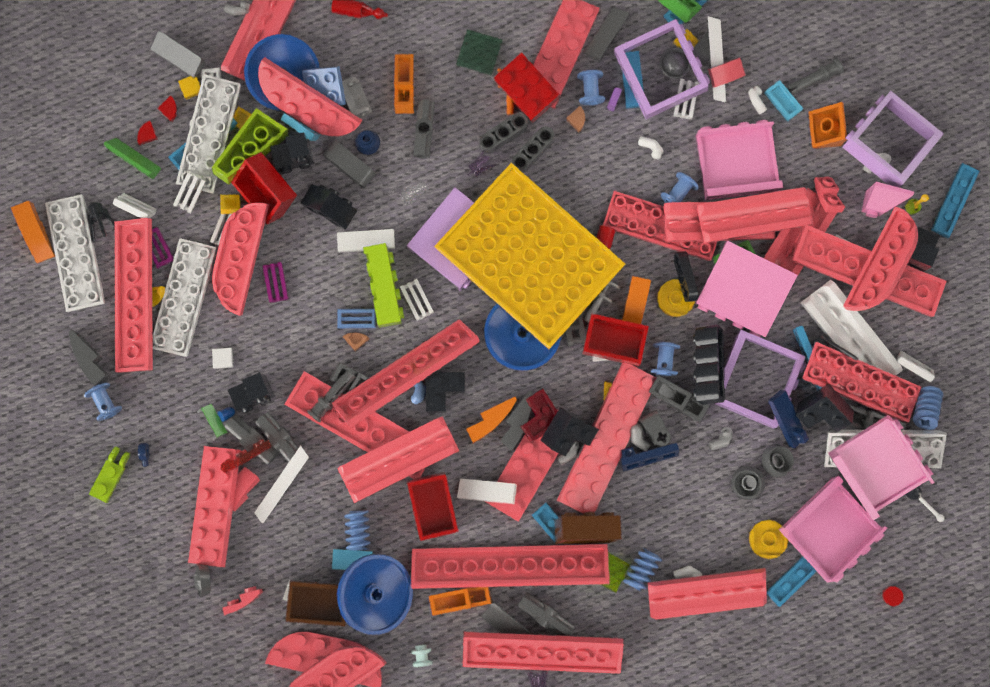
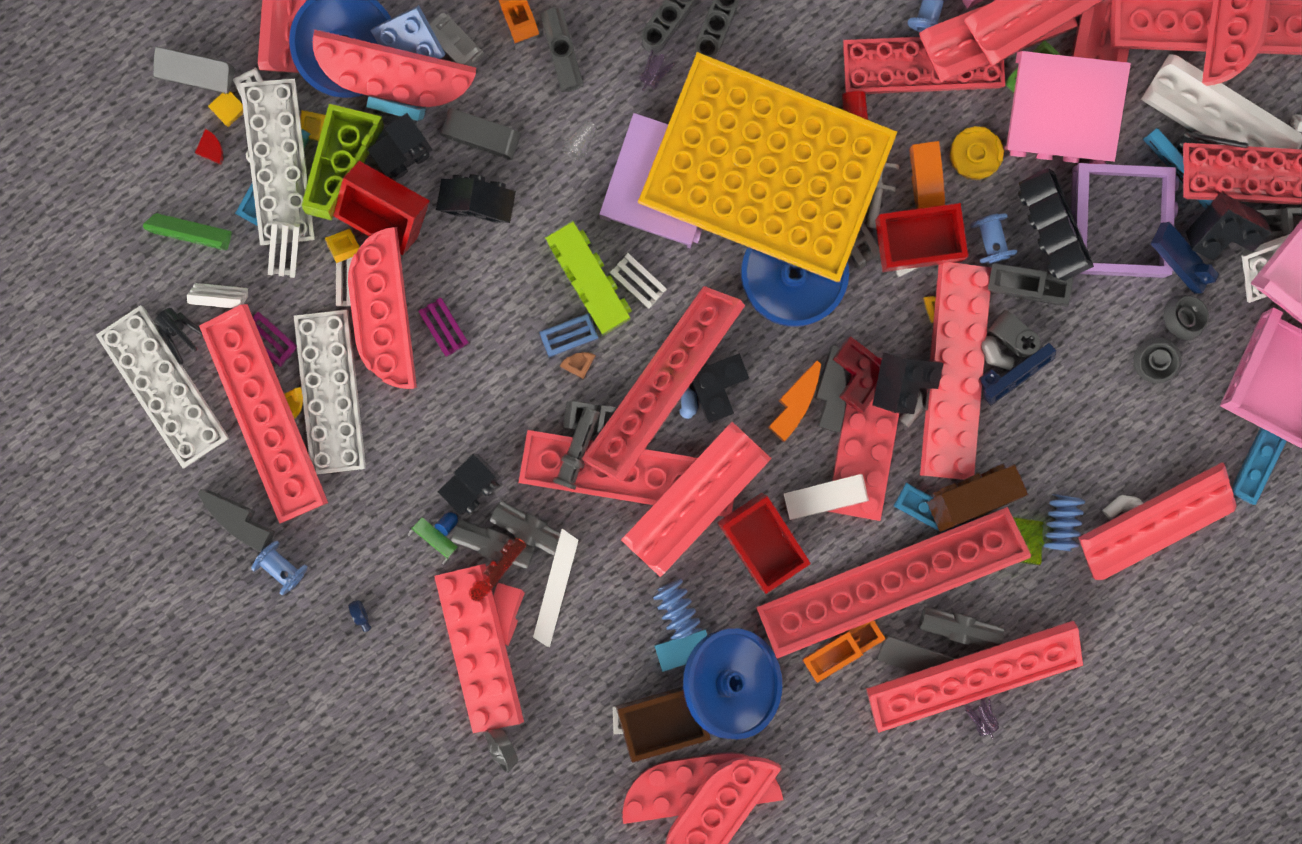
camera: 20 degrees left, 5 degrees up
(33, 231) = (95, 378): orange slope -> none
(109, 476) = (325, 661): lime hinge -> none
(146, 133) = (193, 192): red tile -> none
(222, 358) = (413, 452): white tile -> none
(246, 598) = (567, 749): coral slope -> none
(358, 239) = (536, 228): white tile -> none
(367, 142) = (493, 102): dark blue cone -> none
(421, 653) = (819, 735): light aqua wheel -> none
(685, 276) = (981, 119): black beam -> none
(723, 440) = (1106, 316): light grey arm -> none
(761, 539) = (1201, 421): yellow tile -> none

